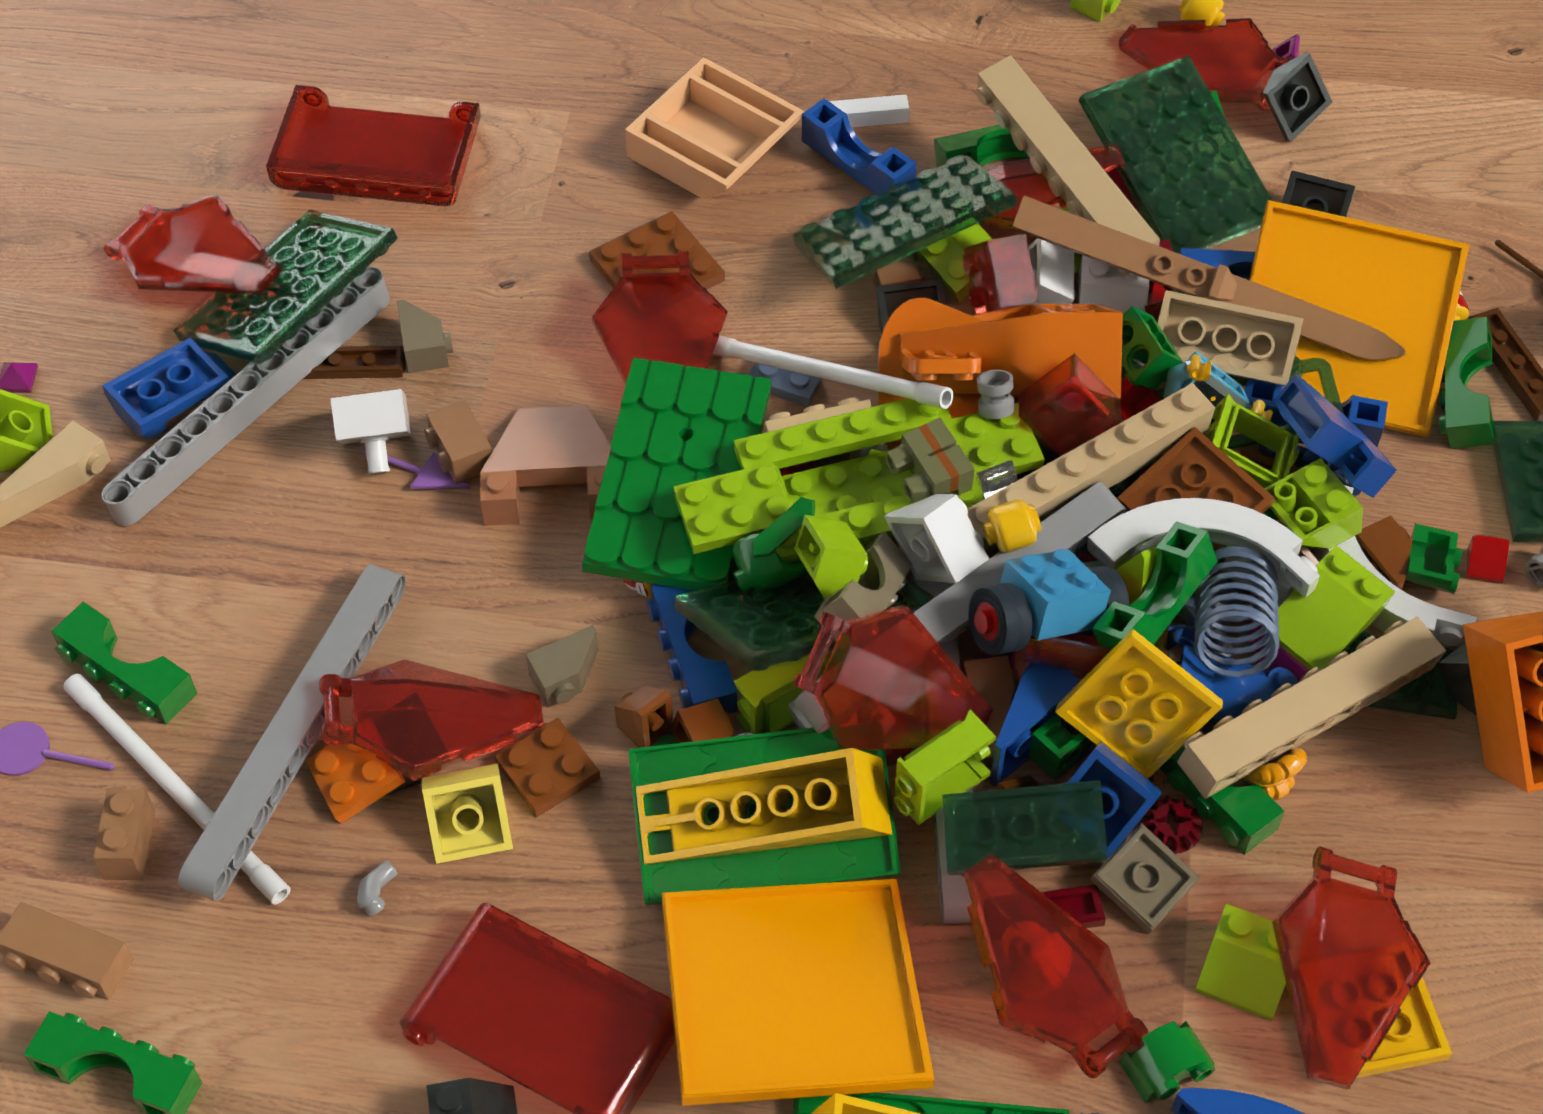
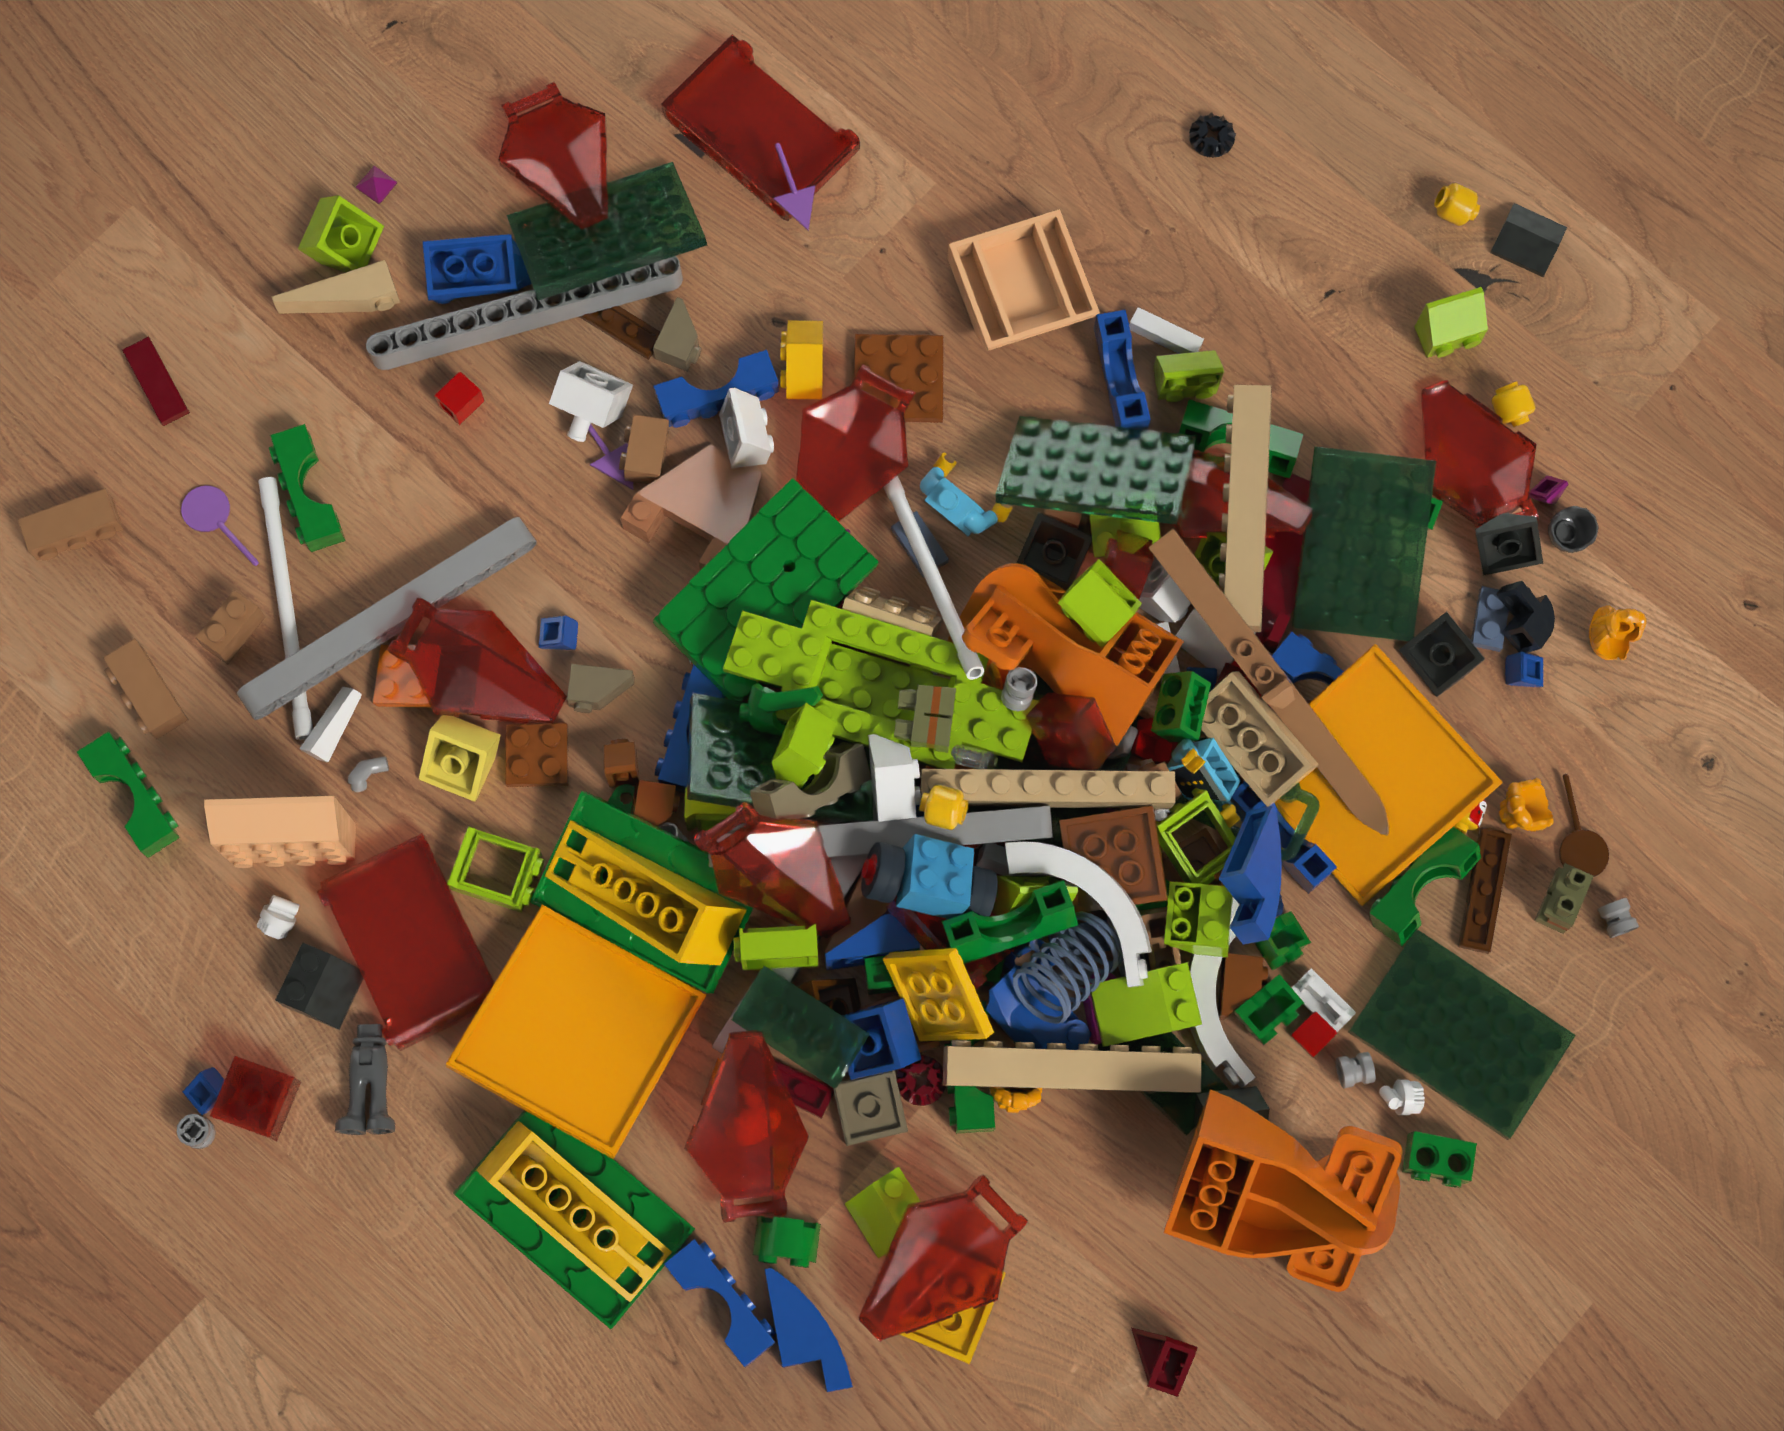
camera: 30 degrees right, 20 degrees up
(233, 499) = (459, 398): none -> red panel
(304, 866) = (331, 725): none -> white piece
(325, 975) = (281, 830): none -> light nougat slope
(375, 1086) = (278, 917): none -> white piece
(456, 174) = (798, 202): none -> medium lavender piece
(486, 647) = (558, 633): none -> blue slope
(521, 333) = (683, 402): none -> blue arch
(544, 372) = (745, 429): none -> white slope
(561, 286) = (804, 359): none -> yellow brick
(598, 921) = (522, 891): none -> lime window
(793, 322) = (955, 504): none -> medium azure torso
(917, 123) = (1187, 375): none -> lime slope
(1005, 289) = (1099, 603): none -> lime slope
(1324, 162) = (1489, 620): none -> sand blue plate
(1335, 64) = (1573, 529): none -> dark grey hair
(1362, 142) = (1532, 617): none -> black brick
(1388, 188) = (1524, 670): none -> blue slope
(1391, 500) = (1284, 942): none -> green cylinder
(1433, 115) = (1614, 630): none -> light orange hair
(1469, 525) = (1323, 999): none -> white hinge
(1491, 279) = (1526, 806): none -> light orange hair

